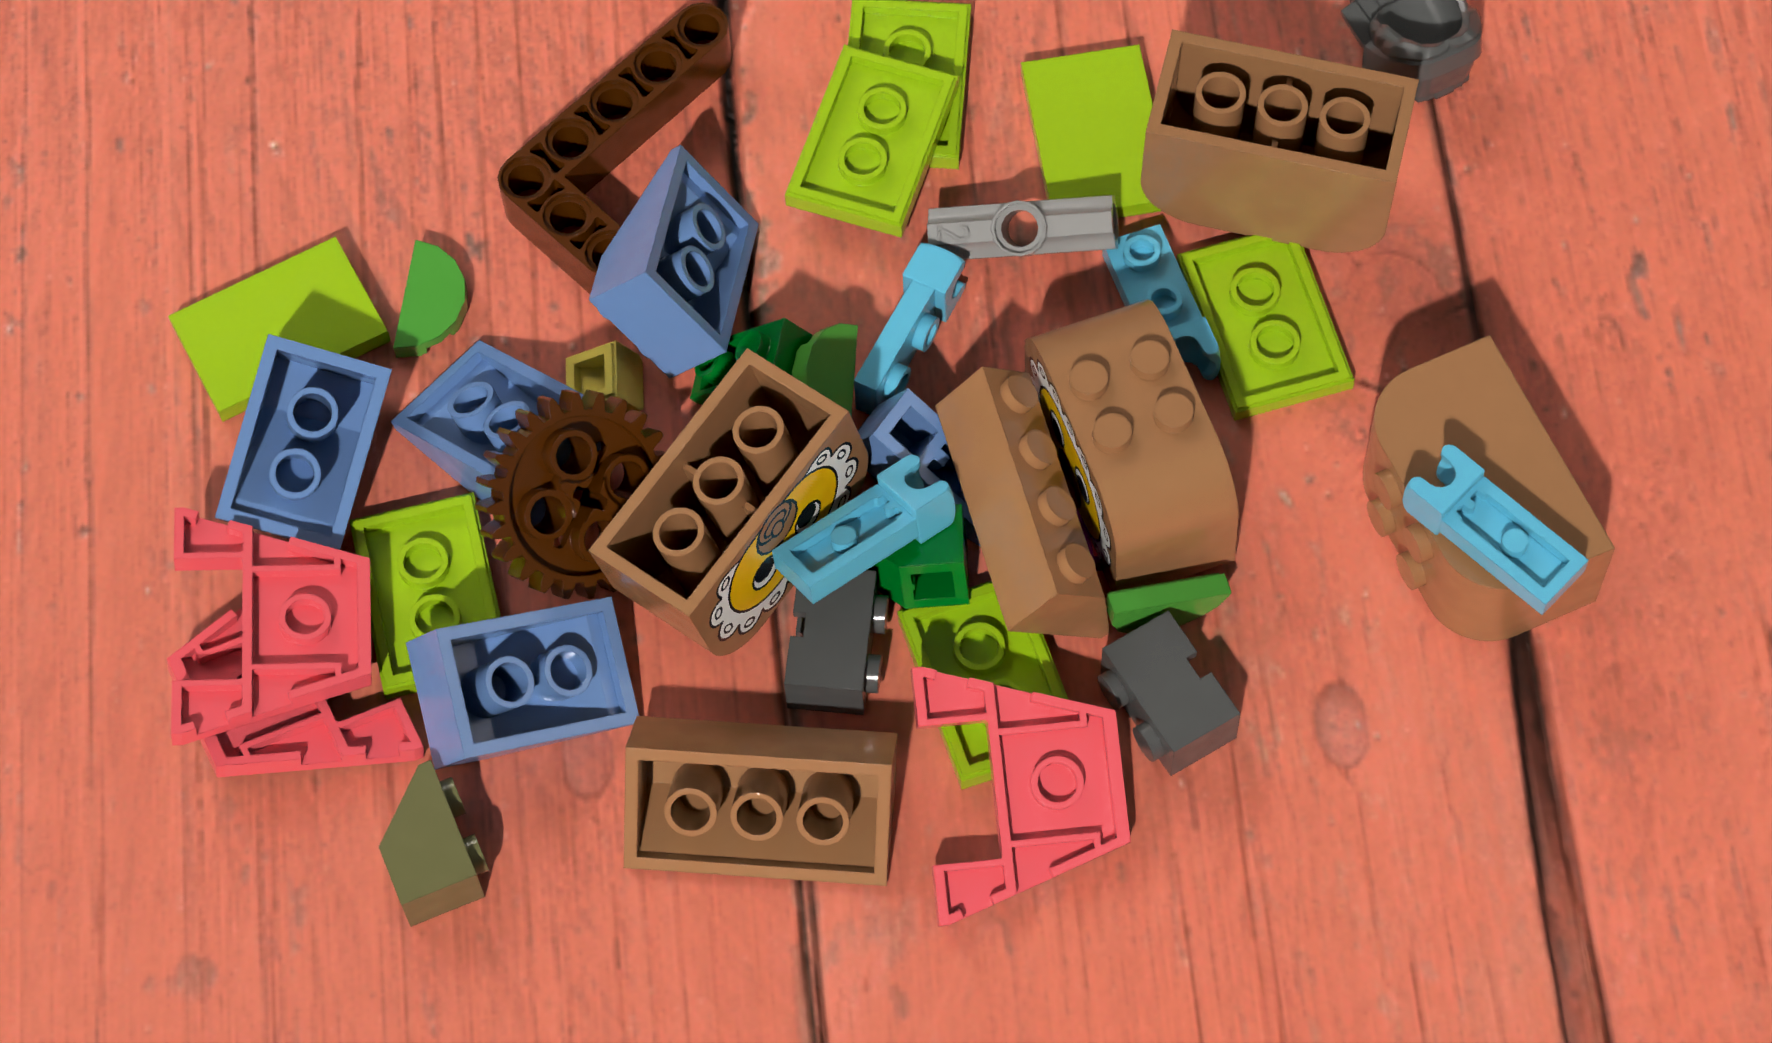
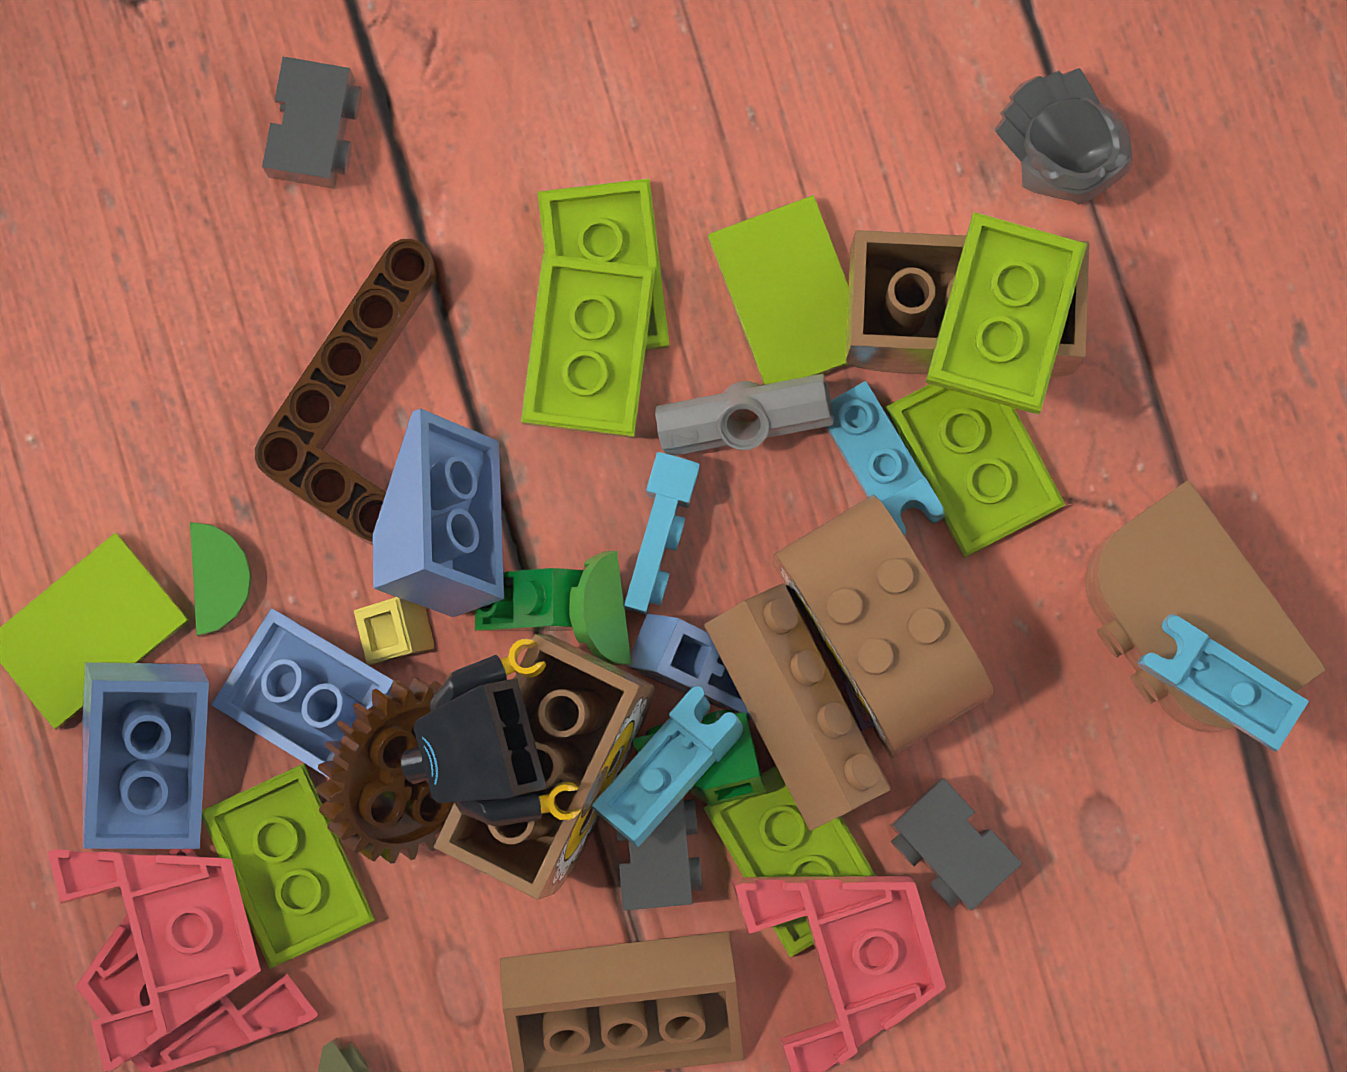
camera: 15 degrees left, 20 degrees up
(521, 681) = (392, 947): medium blue slope -> none
(663, 434) = (481, 745): none -> black torso
(1183, 598) = (939, 760): bright green tile -> none
(1316, 125) = (1006, 313): none -> lime tile

